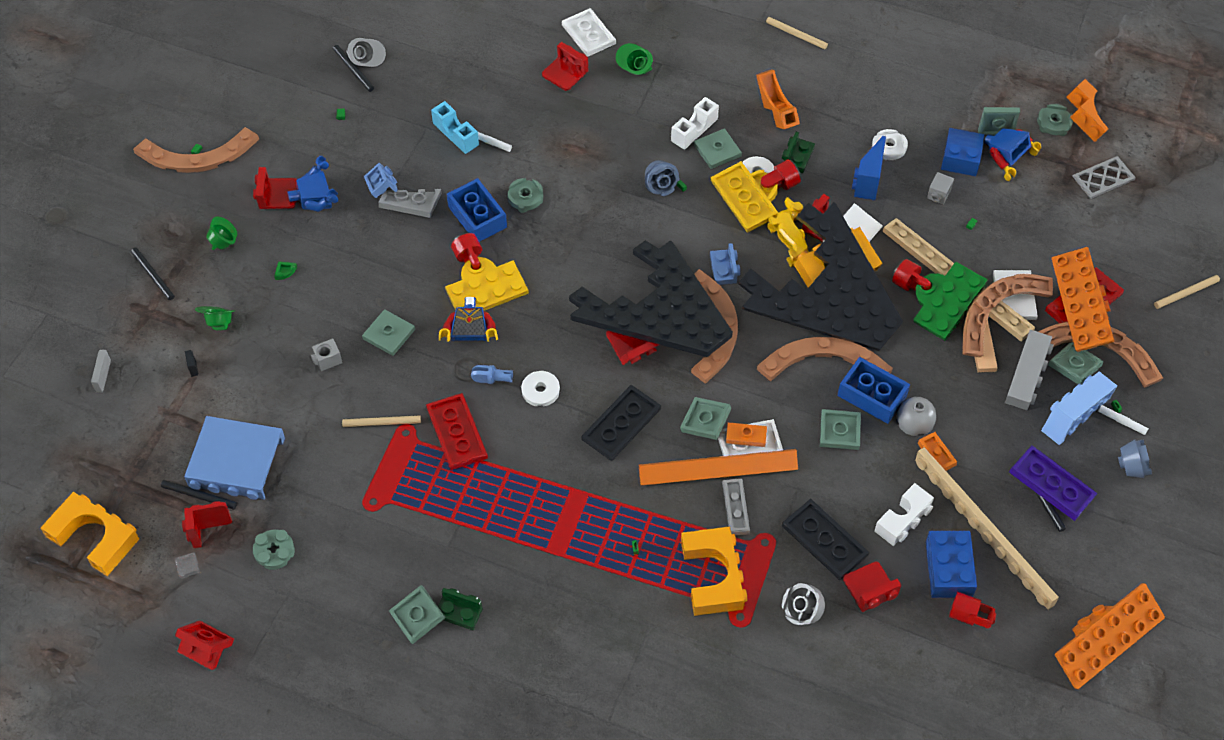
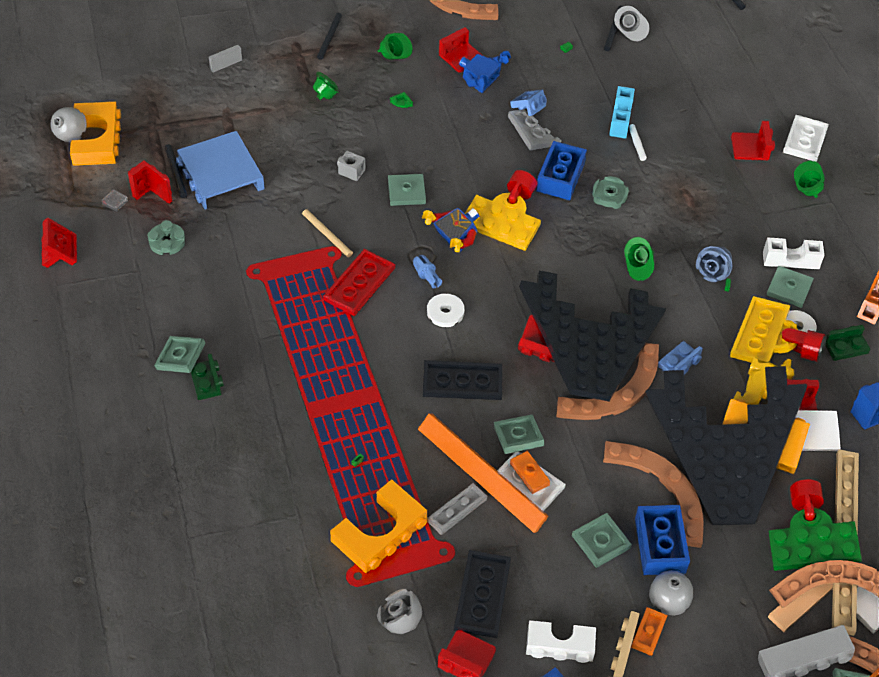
camera: 50 degrees right, 5 degrees down
(63, 547) = (68, 124): none -> light grey cylinder
(191, 363) = (274, 99): black tile -> none
(612, 222) = (639, 258): none -> green piece

